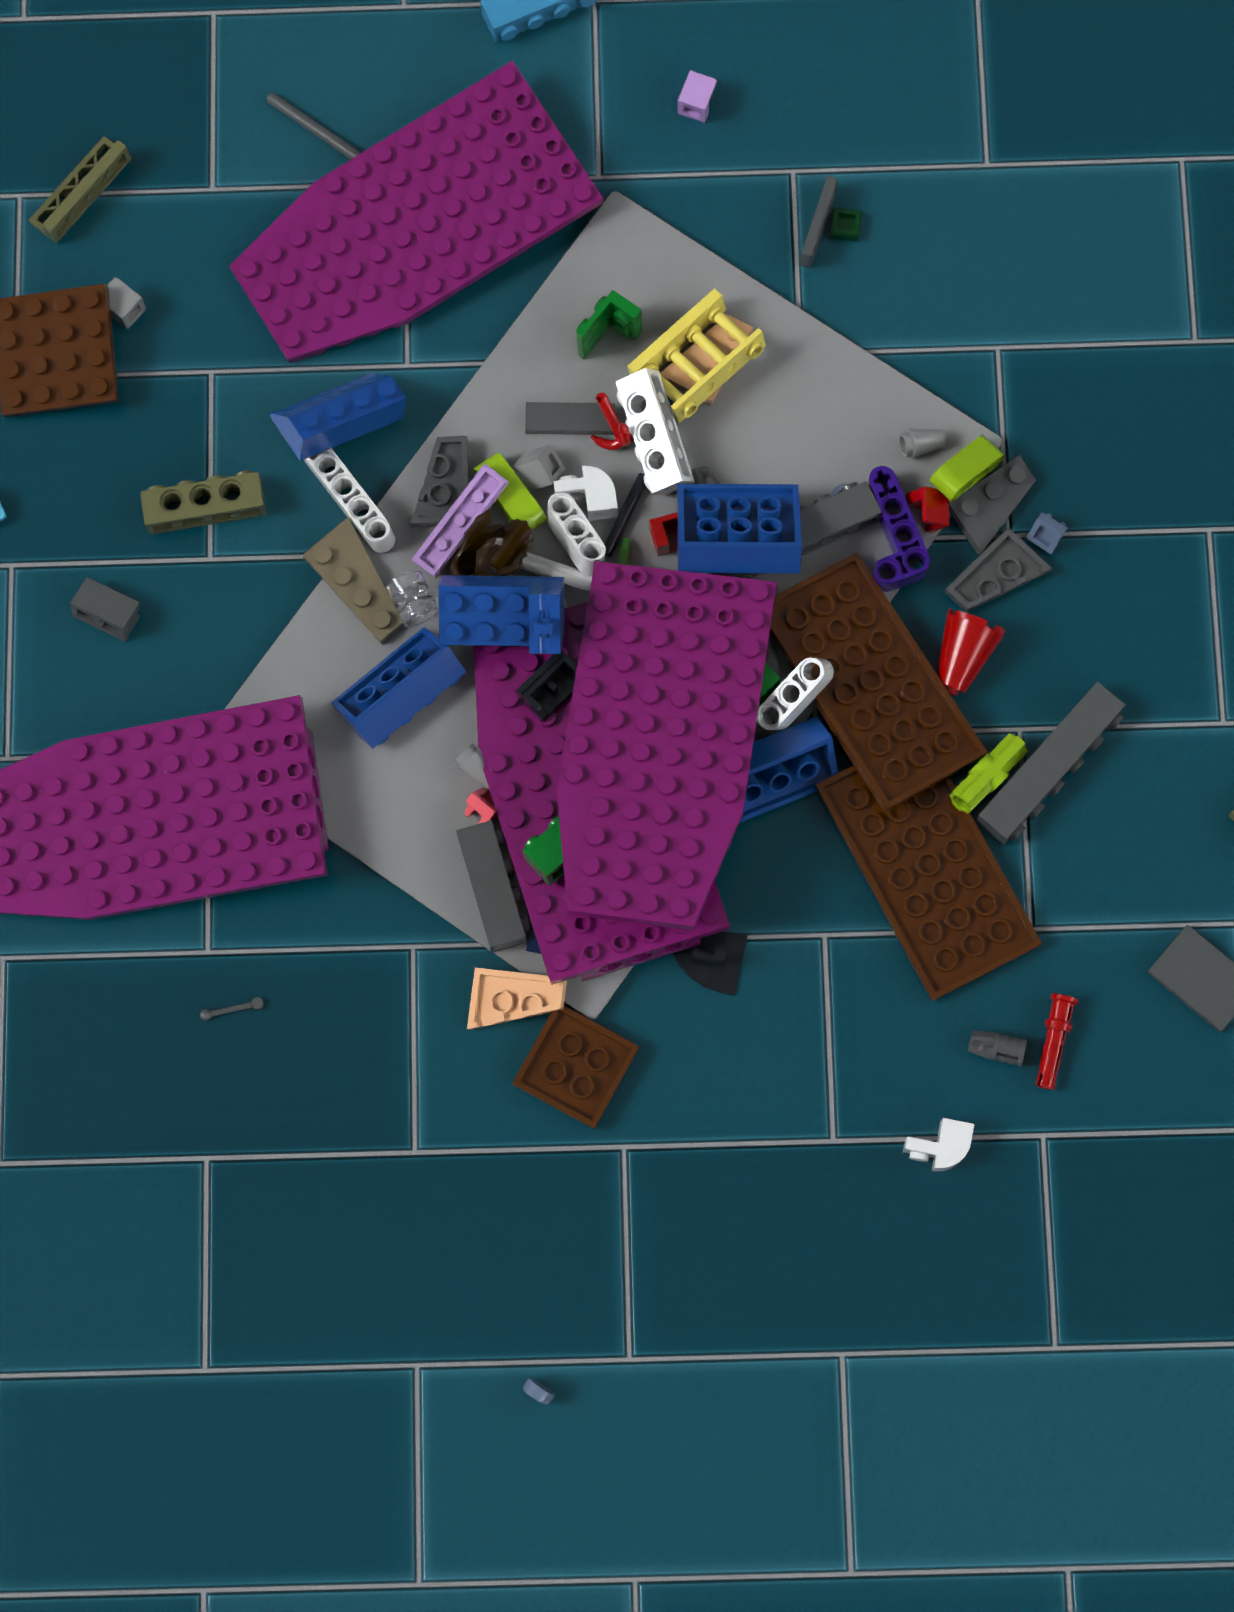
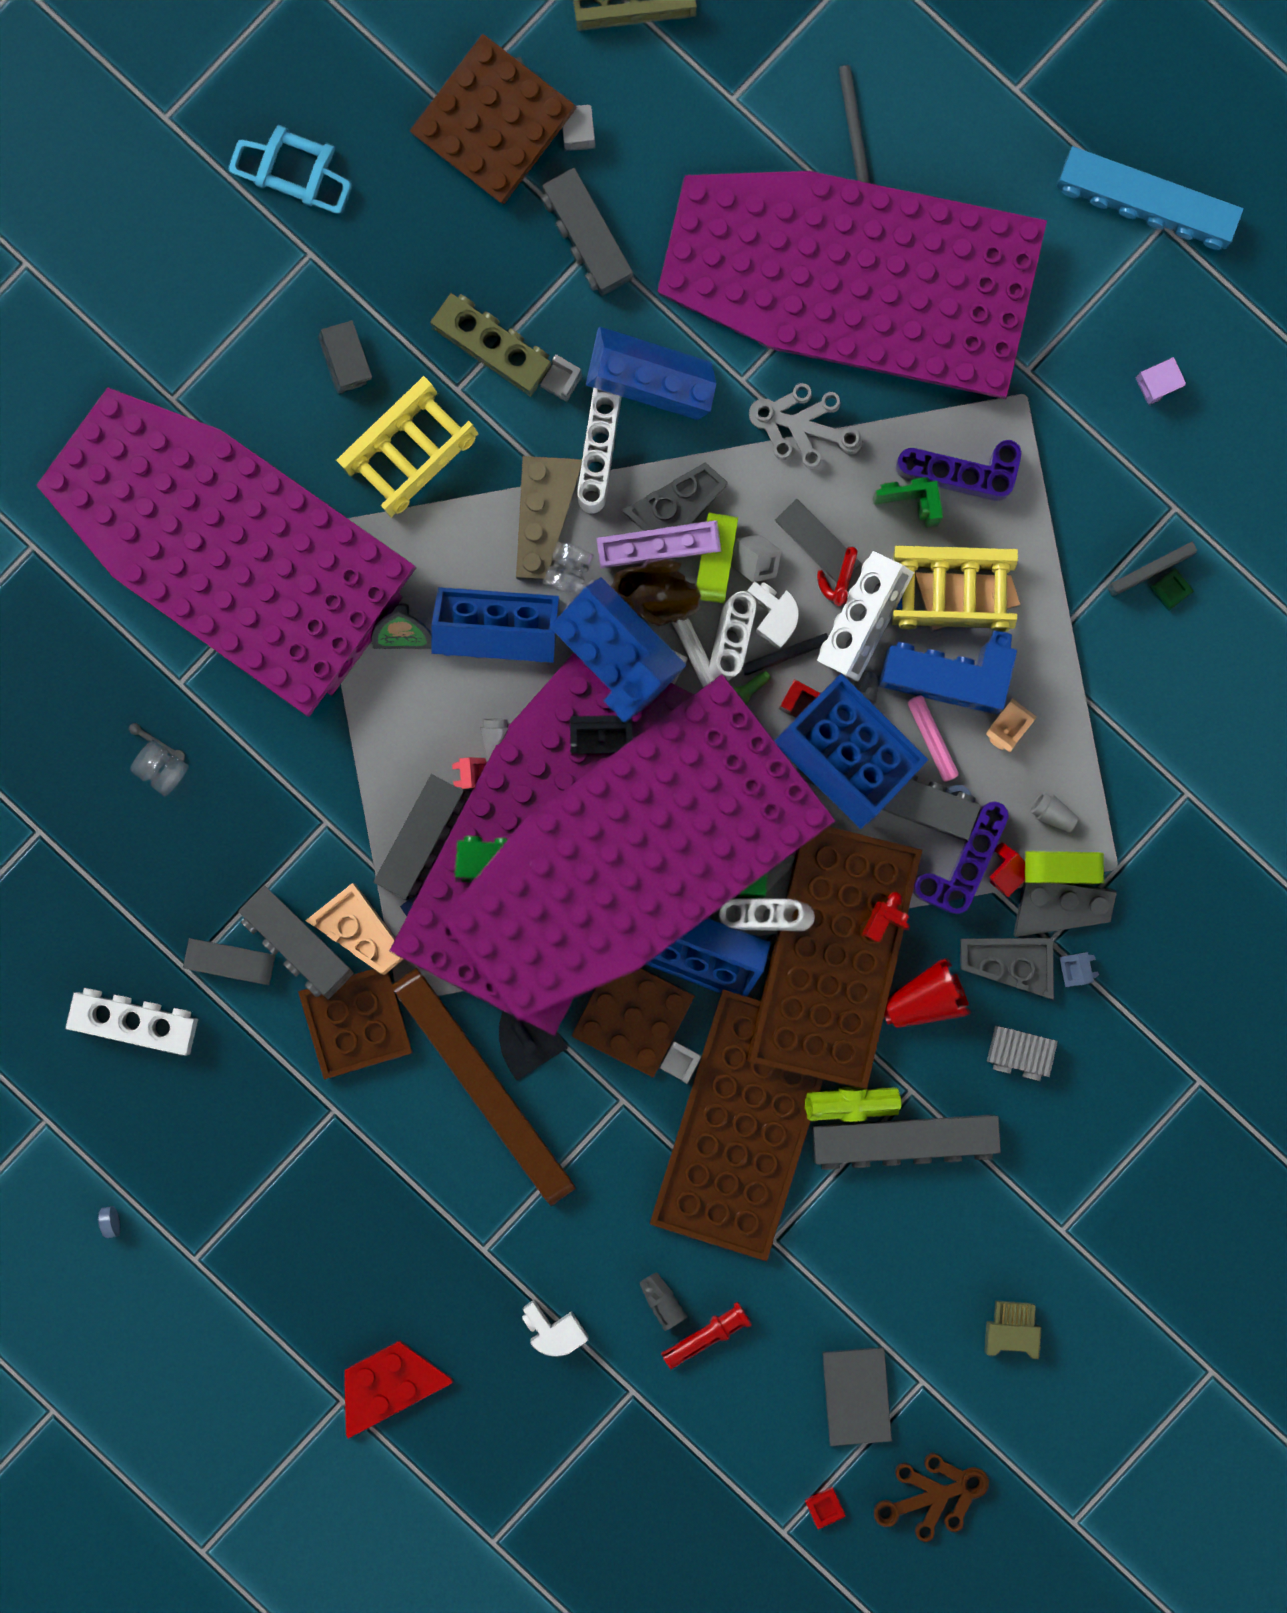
camera: 40 degrees right, 10 degrees up
(187, 613) = (400, 418): none -> light yellow fence
(197, 365) = (587, 232): none -> dark grey brick
(240, 1023) = (151, 760): none -> clear wheel
(277, 478) = (562, 378): none -> light grey panel
(335, 753) = (401, 631): none -> shield
(364, 1240) = (84, 1019): none -> white brick
(439, 1112) = (229, 961): none -> dark grey beam
(475, 1049) = (295, 942): none -> dark grey brick
(479, 353) = (801, 424): none -> light grey plant
(615, 277) = (957, 466): none -> dark purple beam
(715, 1019) = (483, 1087): none -> reddish brown beam
(766, 413) = (953, 681): none -> blue hinge
(773, 867) = (634, 1019): none -> reddish brown plate
(786, 472) = (933, 738): none -> bright pink axle
(830, 411) = (1010, 726): none -> light nougat bracket
(837, 864) = (680, 1061): none -> light grey panel
(862, 1308) = (387, 1385): none -> red wing
(877, 616) = (882, 915): none -> red piece
(1067, 625) = (1021, 1051): none -> light grey brick

